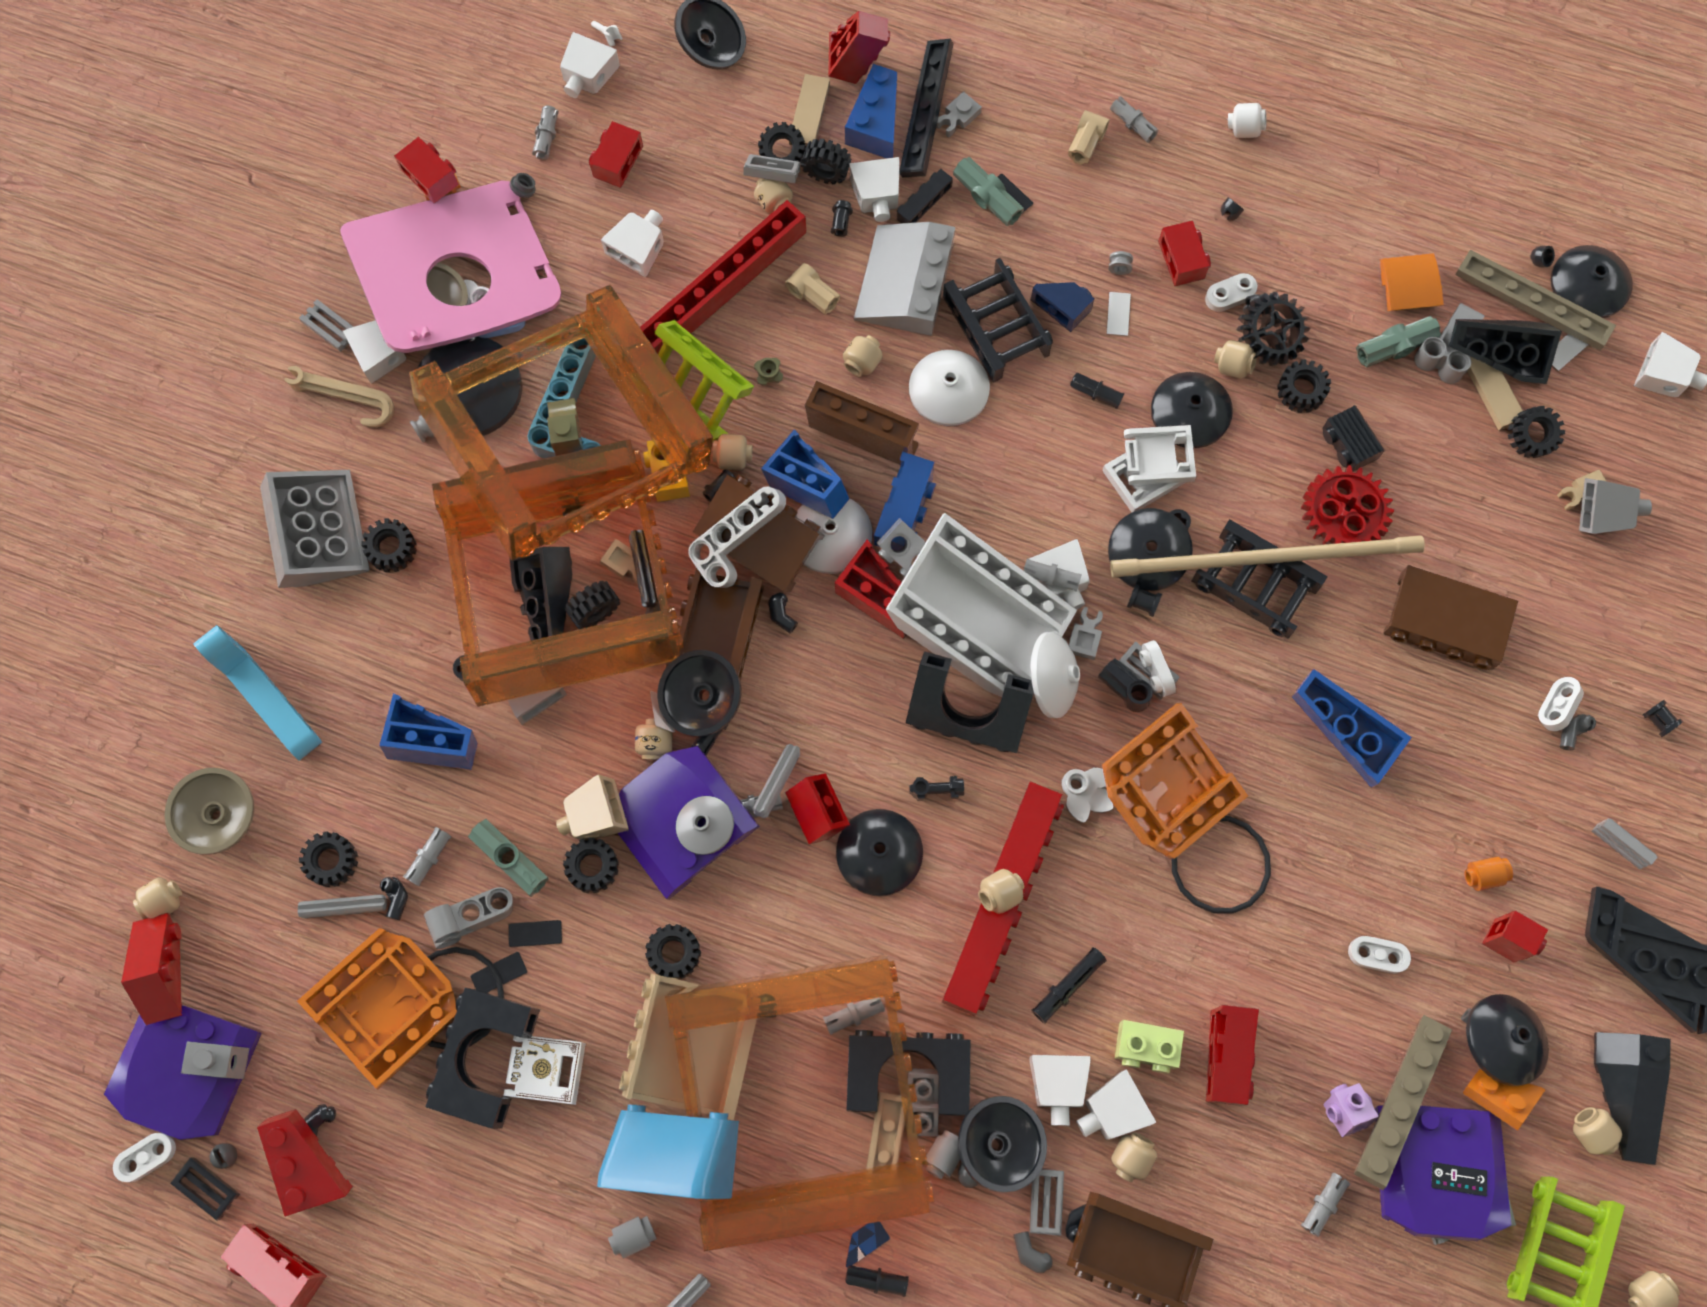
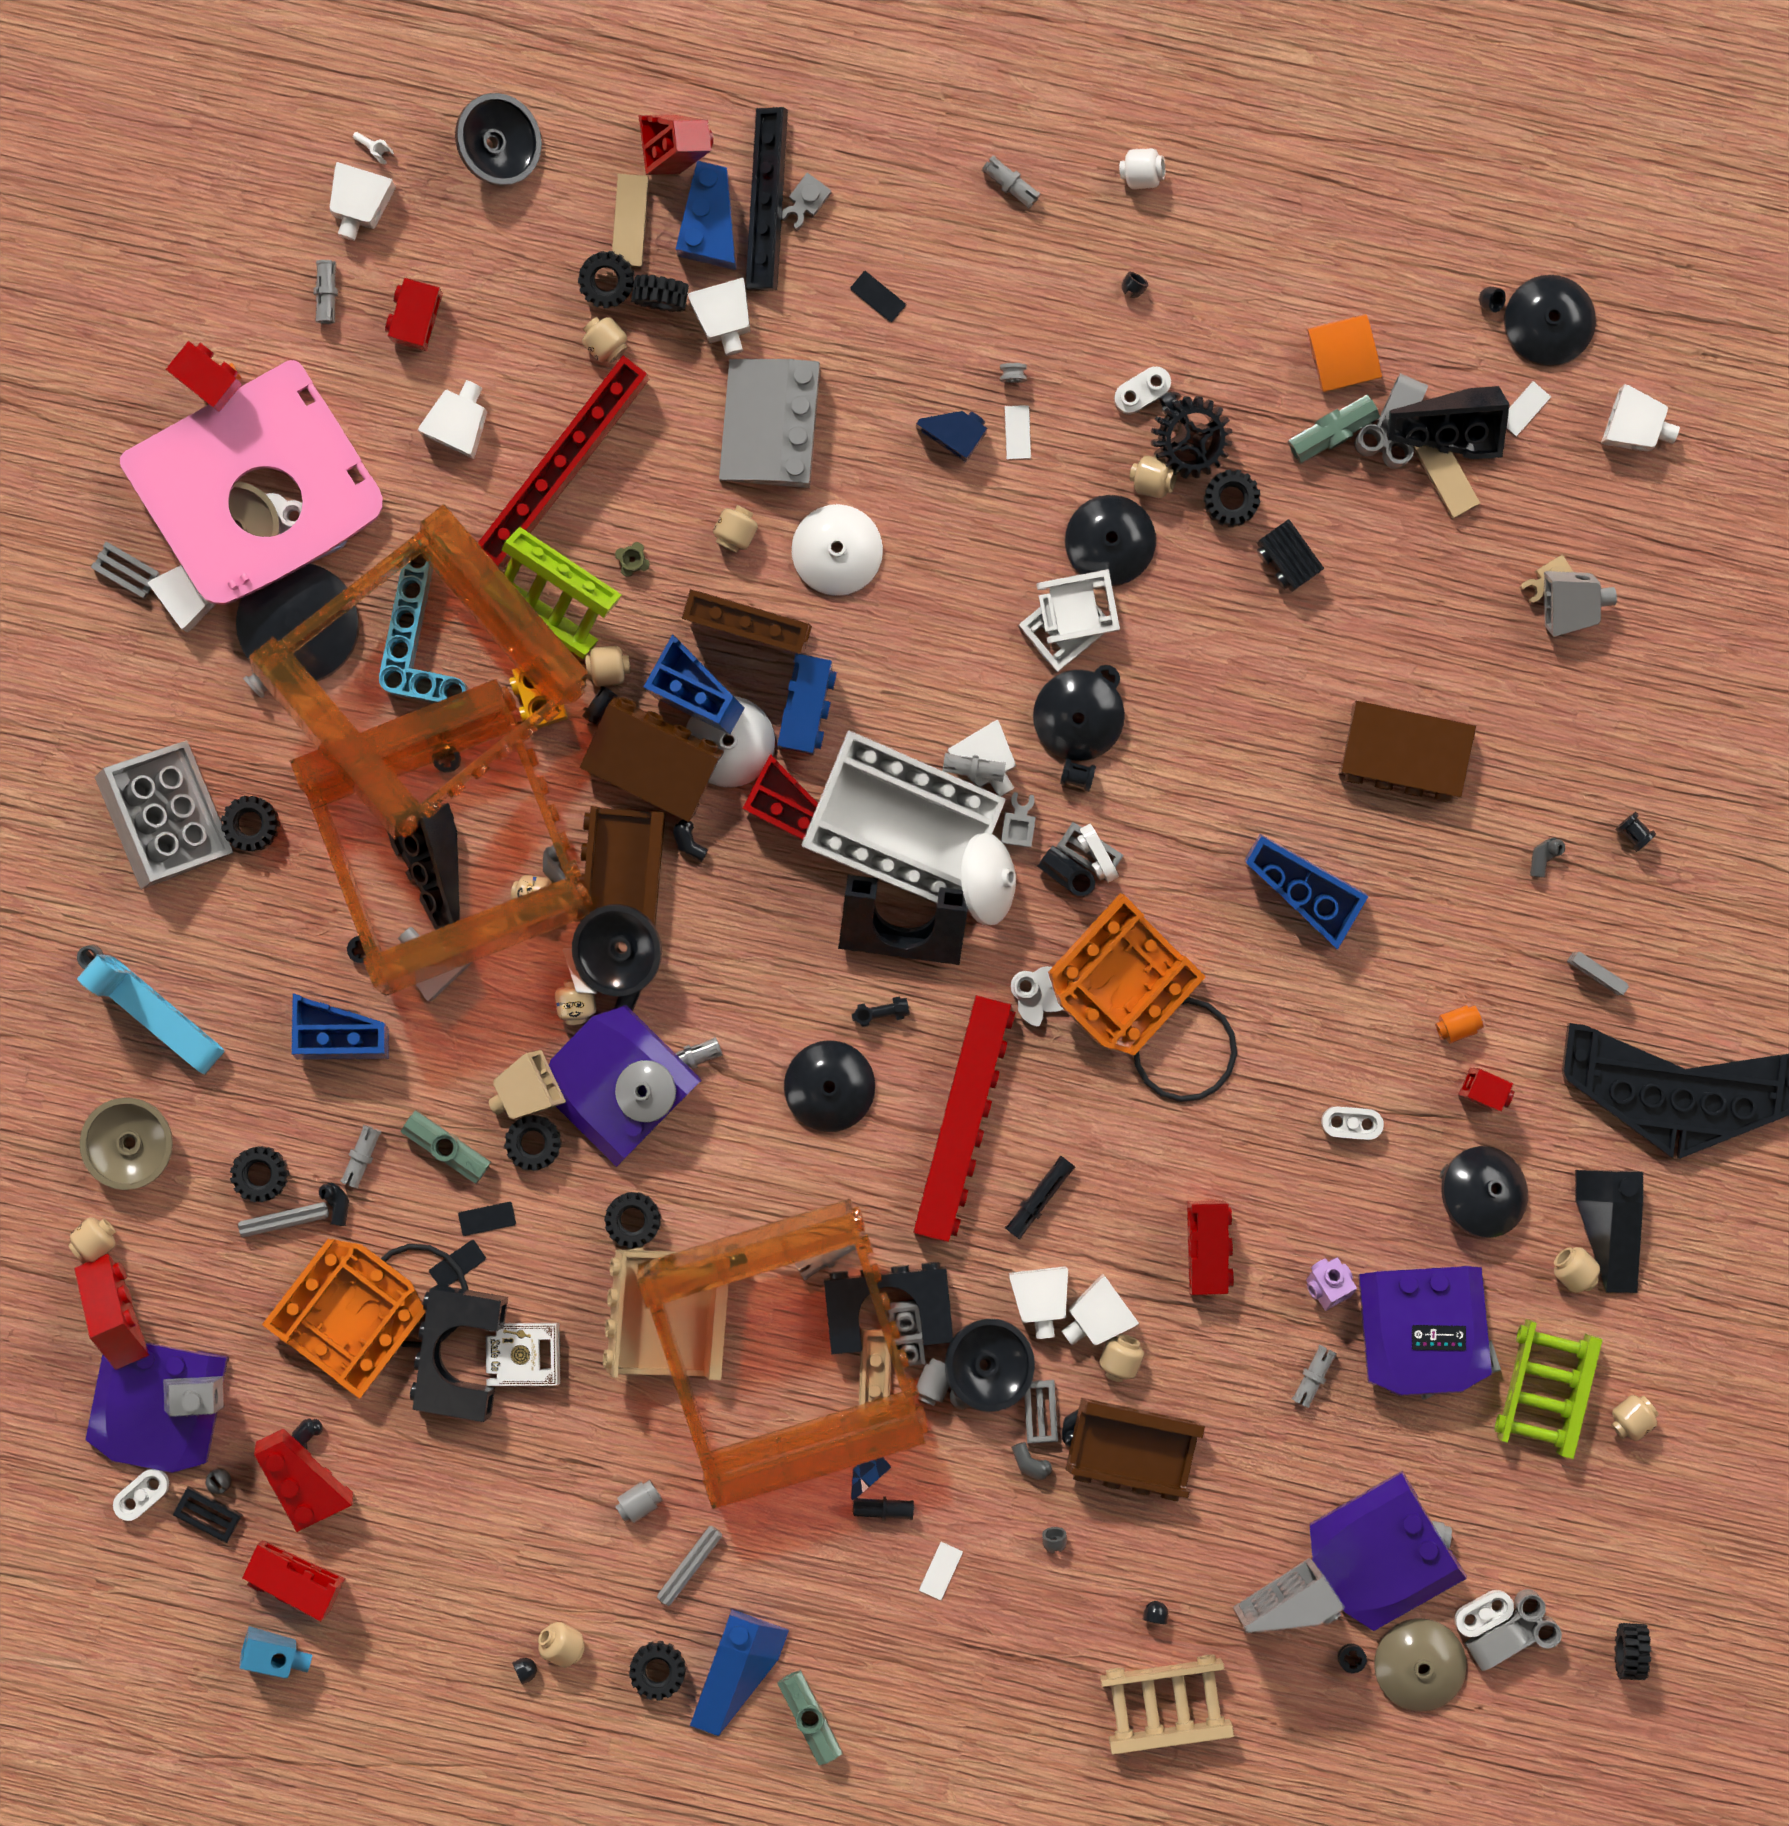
camera: 10 degrees left, 15 degrees up
(345, 391) = (165, 649): tan piece -> none
(447, 921) = (400, 1224): light grey piece -> none
(523, 185) = (316, 360): dark grey plate -> none
(564, 426) = (419, 667): olive arch -> none
(592, 605) = (485, 865): black tyre -> none
(619, 560) = (507, 806): tan plate -> none
(643, 569) = (532, 816): black axle -> none
(671, 1154) = (664, 1423): dark azure windscreen -> none
(739, 531) = (631, 765): white beam -> none
(771, 168) = (599, 318): light grey tile -> none
(776, 781) = (712, 1029): light grey axle -> none
(807, 284) = (661, 449): tan piece -> none
(815, 810) = (758, 1053): red brick -> none
(841, 211) = (687, 357): black pin -> none
(912, 546) = (822, 757): light grey brick -> none
(925, 197) = (780, 318): black piece -> none
(983, 340) = (851, 465): black fence -> none
(988, 191) = (851, 301): sand green piece -> none
(1001, 891) = (959, 1117): tan head -> none
(1089, 132) = (960, 206): tan piece -> none
(1096, 390) = (1002, 534): black axle -> none
(1149, 1046) = (1126, 1248): yellowish green brick -> none
(1184, 253) = (1084, 351): red brick -> none
(1303, 575) = (1195, 704): black fence -> none
(1359, 489) = (1301, 614): red gear -> none
(1399, 545) = (1341, 683): tan piece -> none
(1403, 1102) = (1382, 1268): dark tan plate -> none
(1506, 1102) = (1484, 1255): orange wing -> none
(1535, 300) = (1484, 356): dark tan plate -> none
(1551, 432) = (1508, 521): black tyre -> none
(1559, 705) = (1526, 831): white plate -> none

